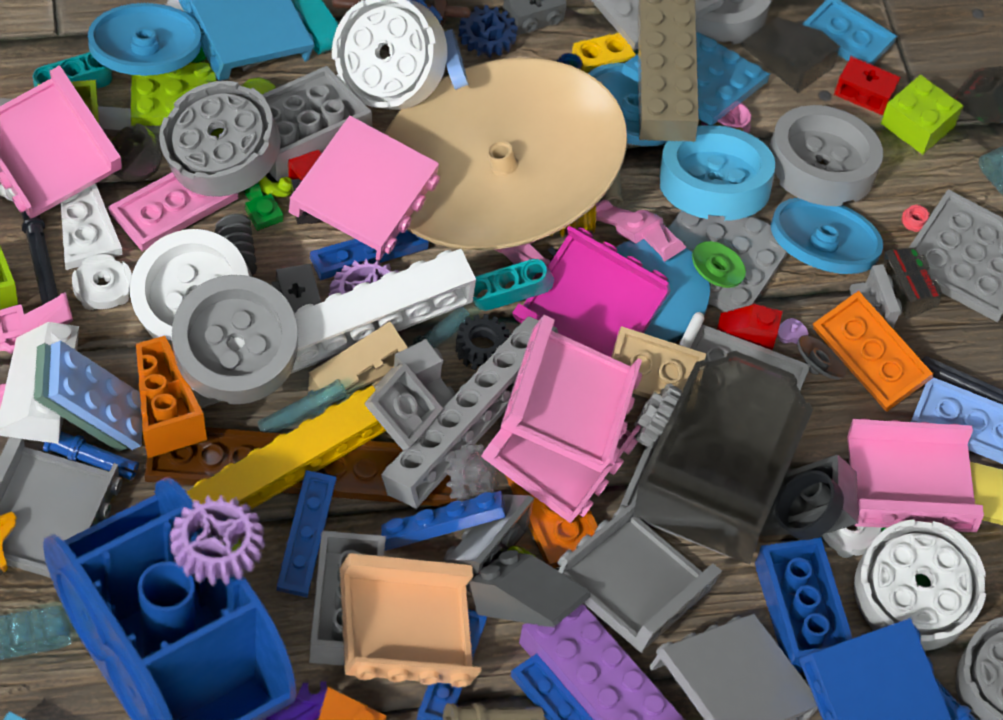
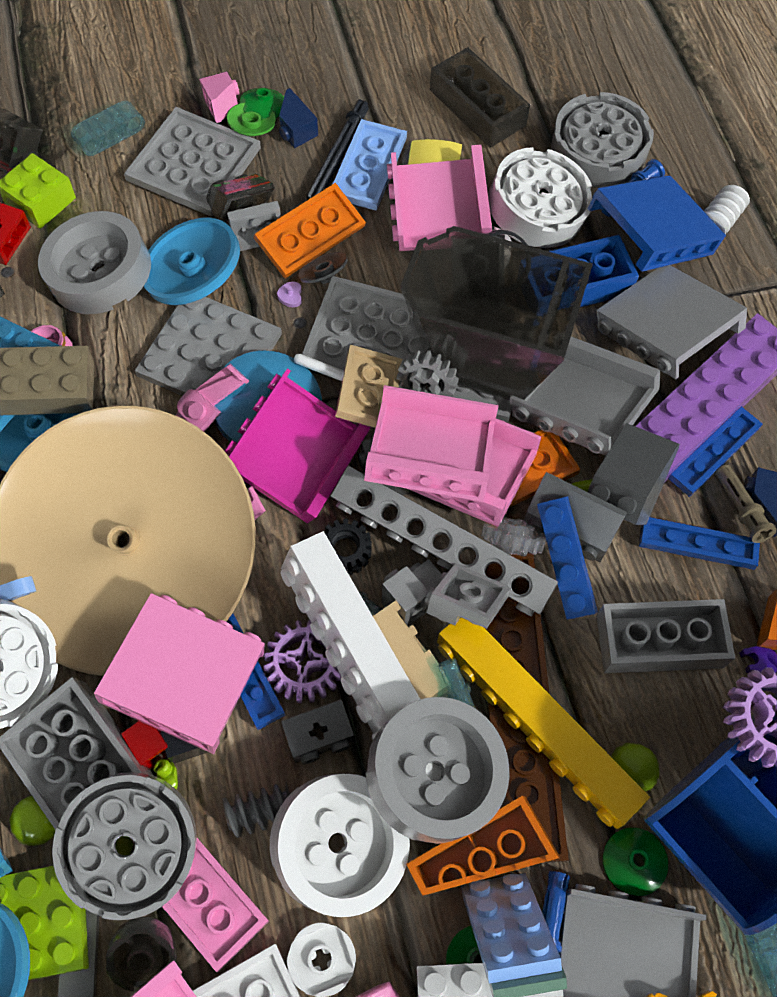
camera: 90 degrees left, 10 degrees up
(262, 209) = (199, 789): green plate -> none
(306, 534) = (601, 684): blue plate -> none
(406, 620) = (694, 576): light nougat panel -> none
(523, 288) = (274, 509): teal beam -> none
(718, 173) = (129, 322): medium azure brick -> none
(718, 264) = (239, 341): bright green dish -> none
(752, 324) = (296, 321): red slope -> none
(915, 217) = (155, 200): coral plate -> none

